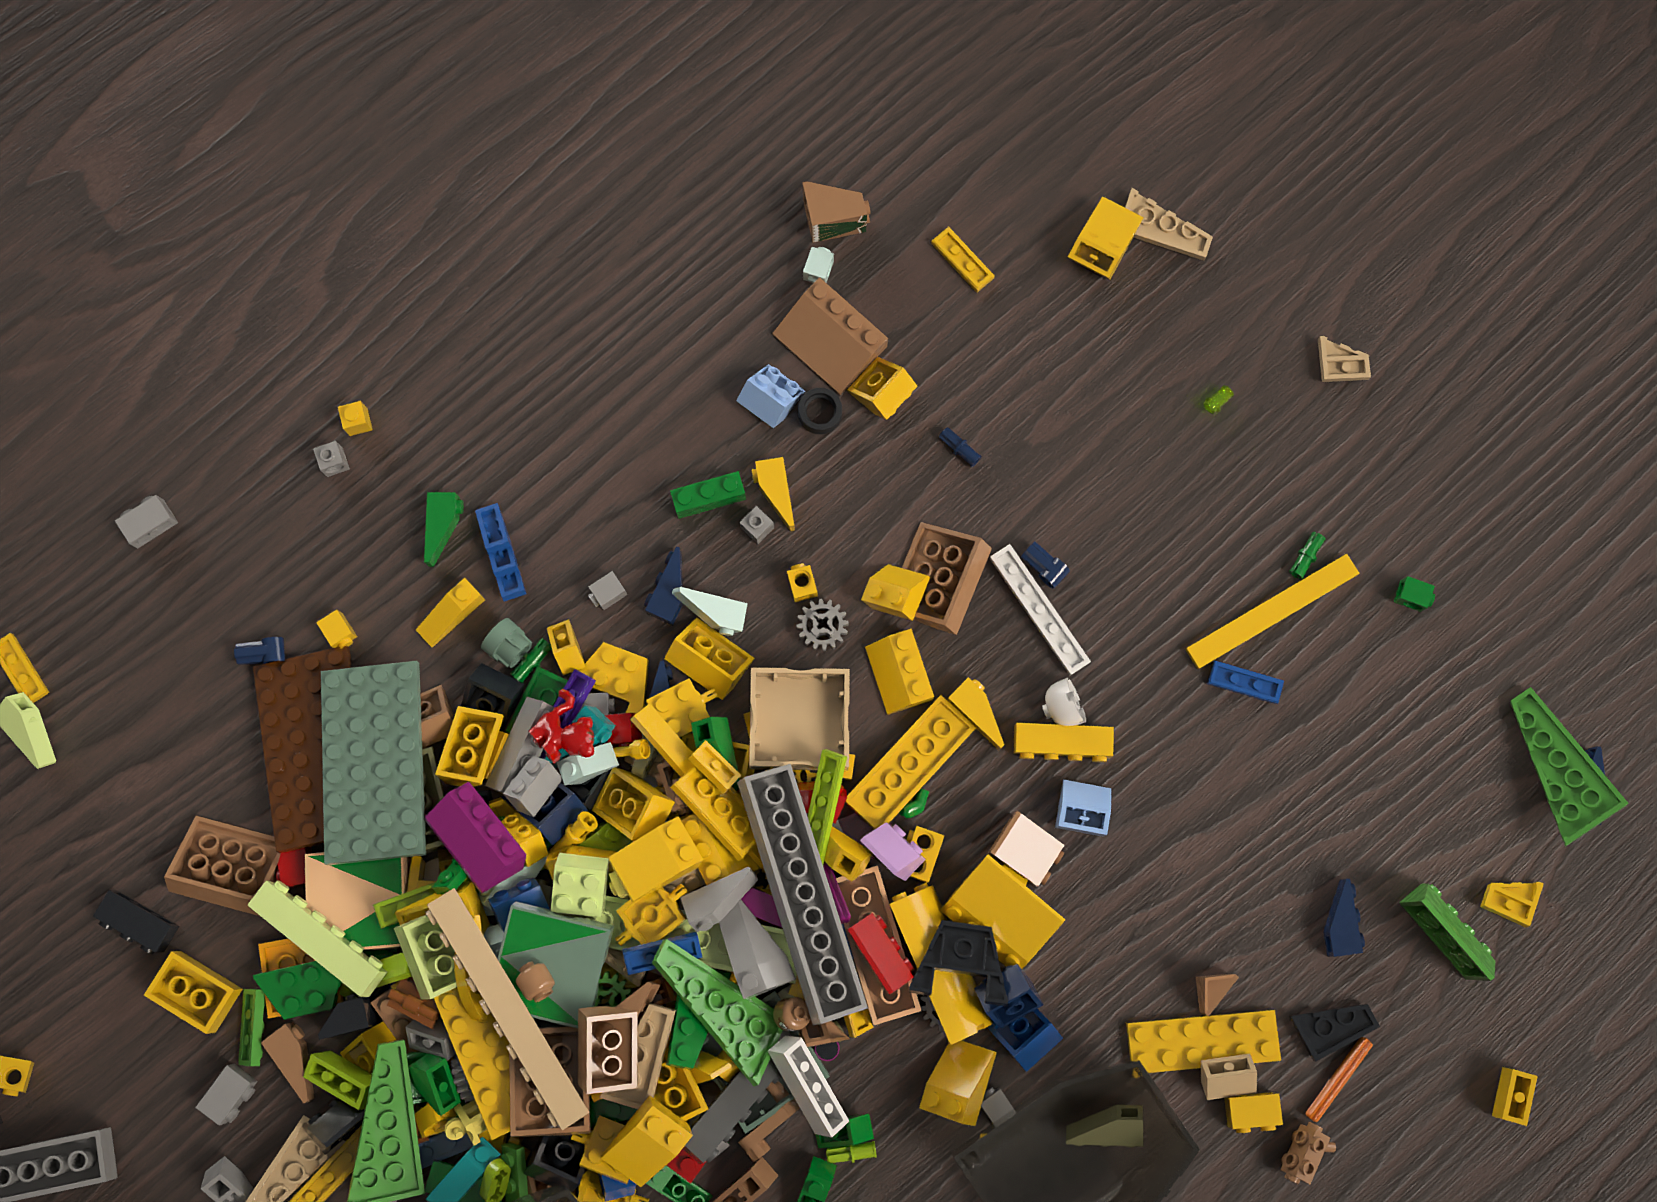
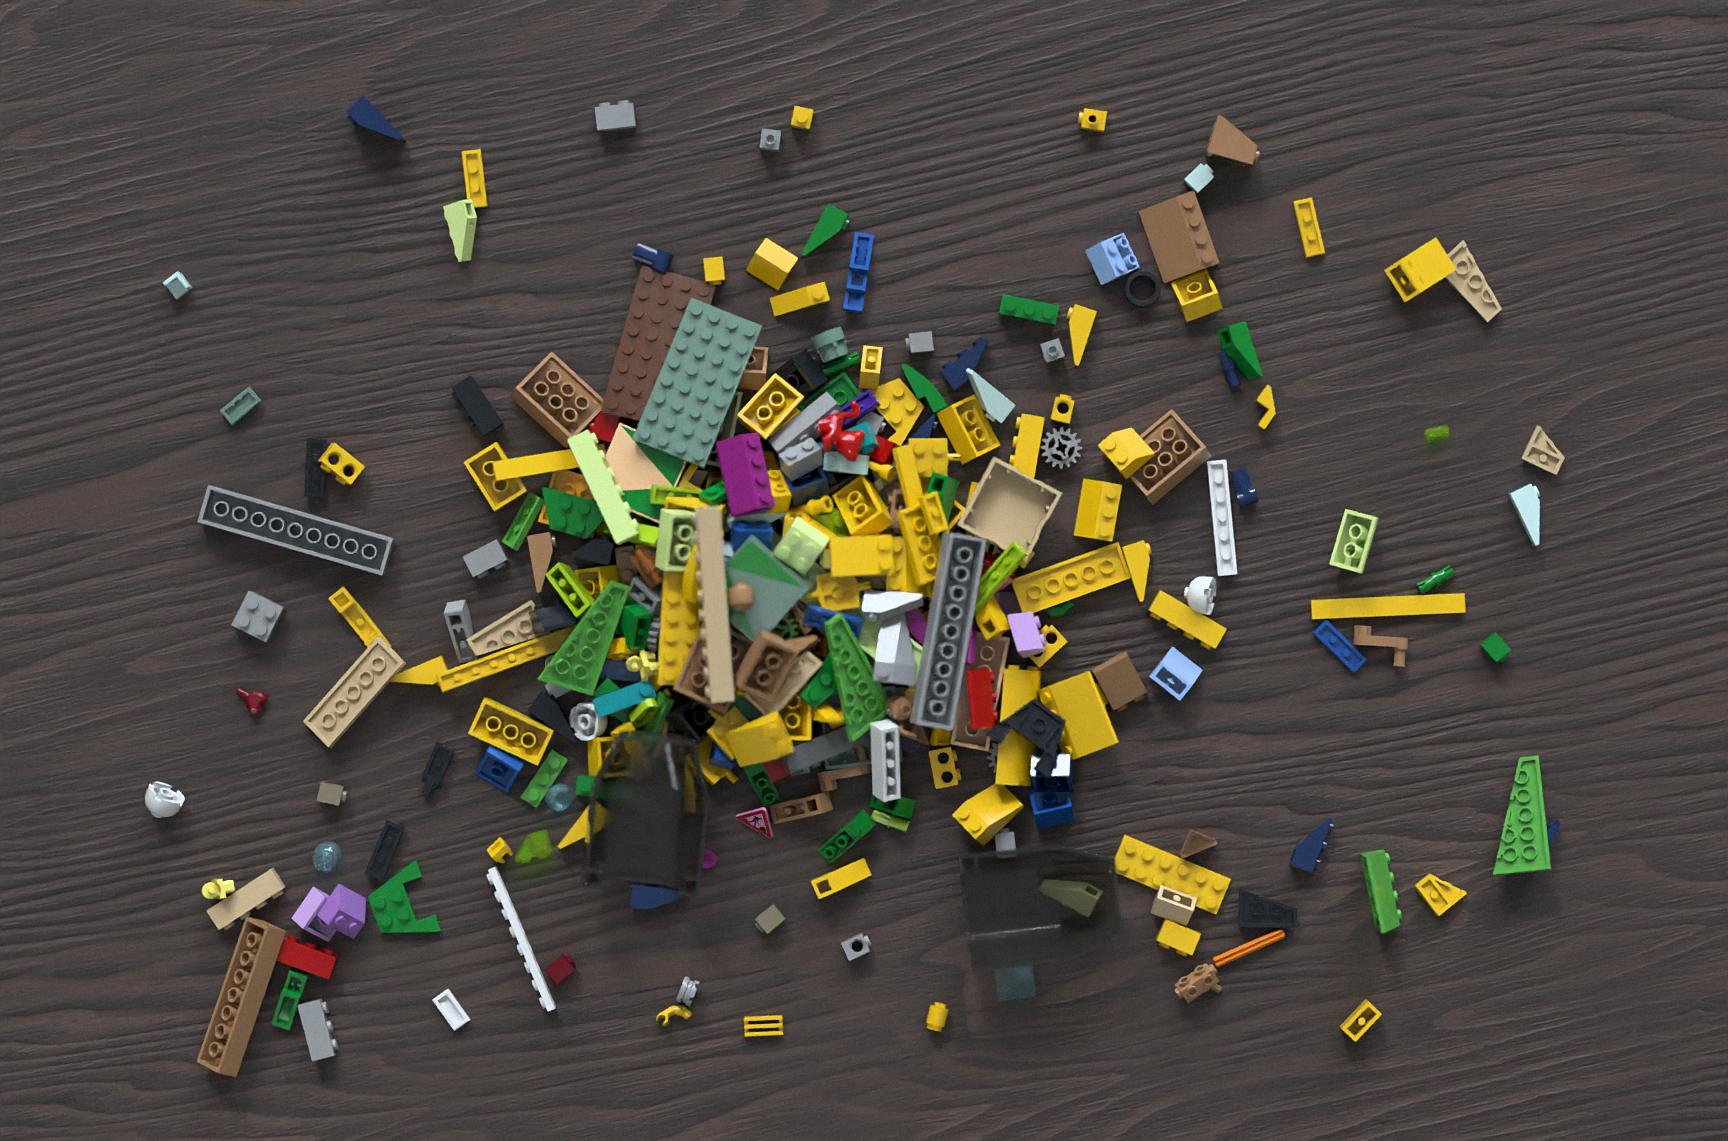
camera: 25 degrees right, 10 degrees up
(228, 955) = (536, 464): none -> yellow tile
(399, 592) = (771, 264): none -> yellow slope
(636, 639) = (924, 388): none -> green slope
(678, 269) = (1098, 125): none -> yellow brick
(782, 637) = (1027, 444): none -> yellow brick
(876, 1059) = (939, 768): none -> yellow brick
(959, 418) = (1239, 347): none -> green slope
(1020, 460) = (1266, 400): none -> yellow slope
(1199, 557) = (1353, 541): none -> yellowish green slope
(1265, 657) = (1363, 636): none -> medium nougat beam
(1362, 429) = (1528, 509): none -> light aqua slope

